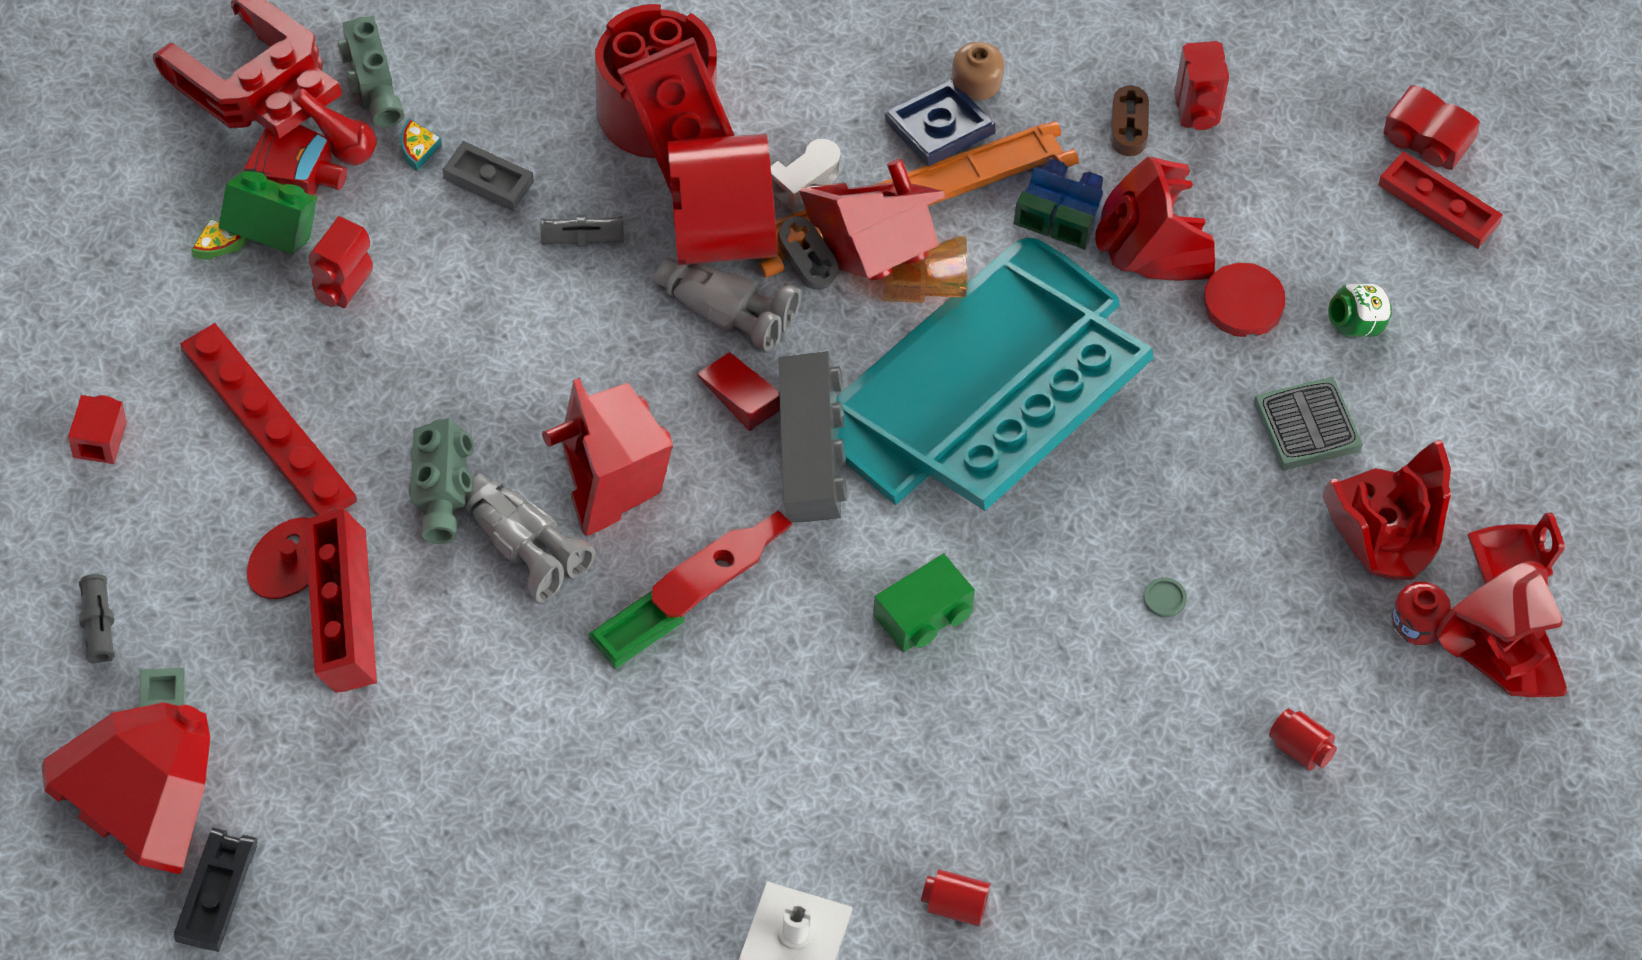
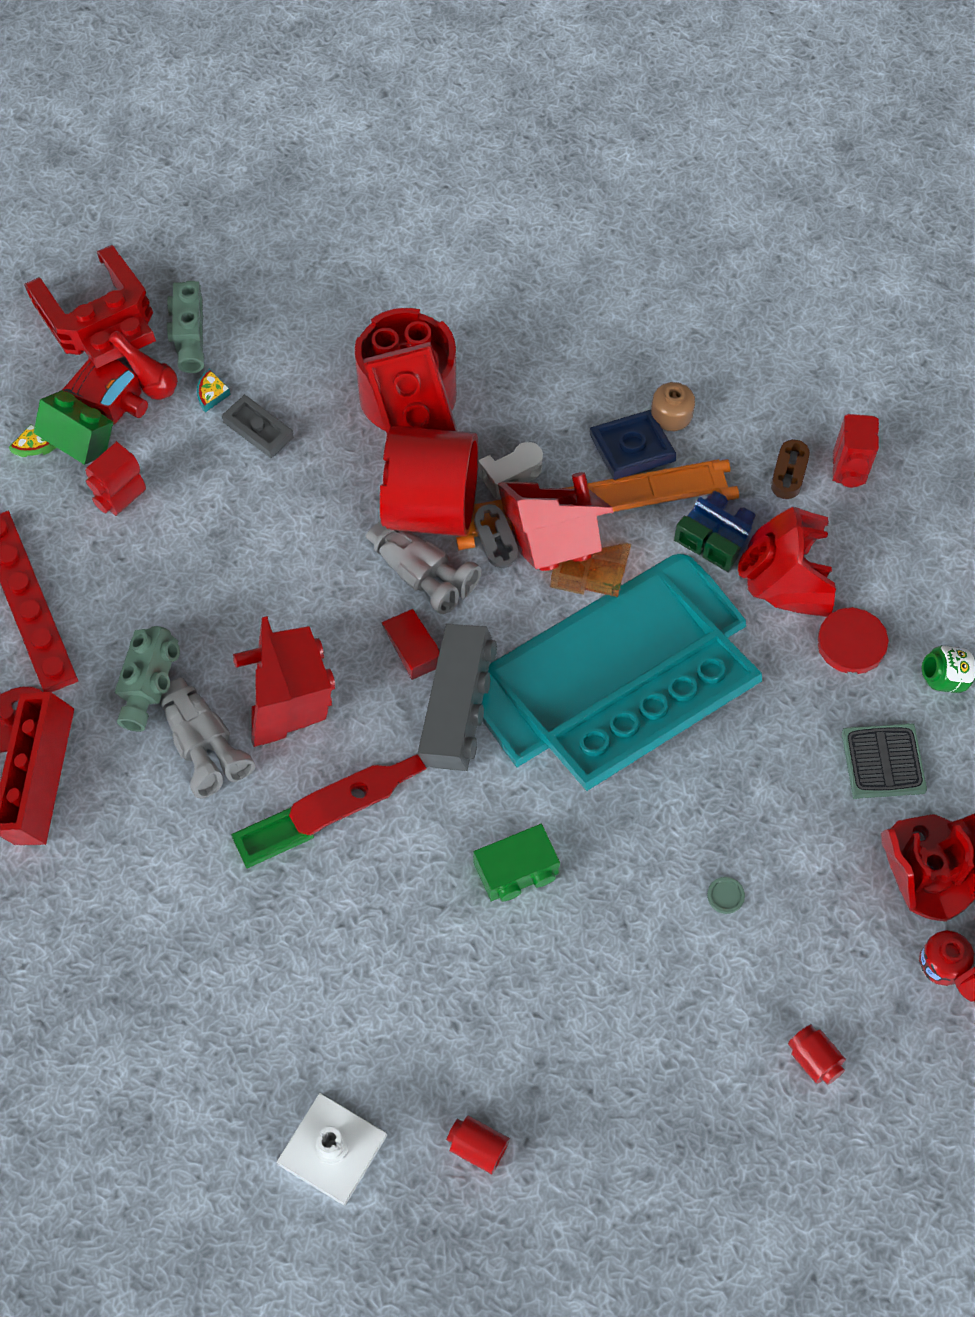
camera: 15 degrees right, 5 degrees up
(582, 230) = (298, 482): dark grey pin -> none

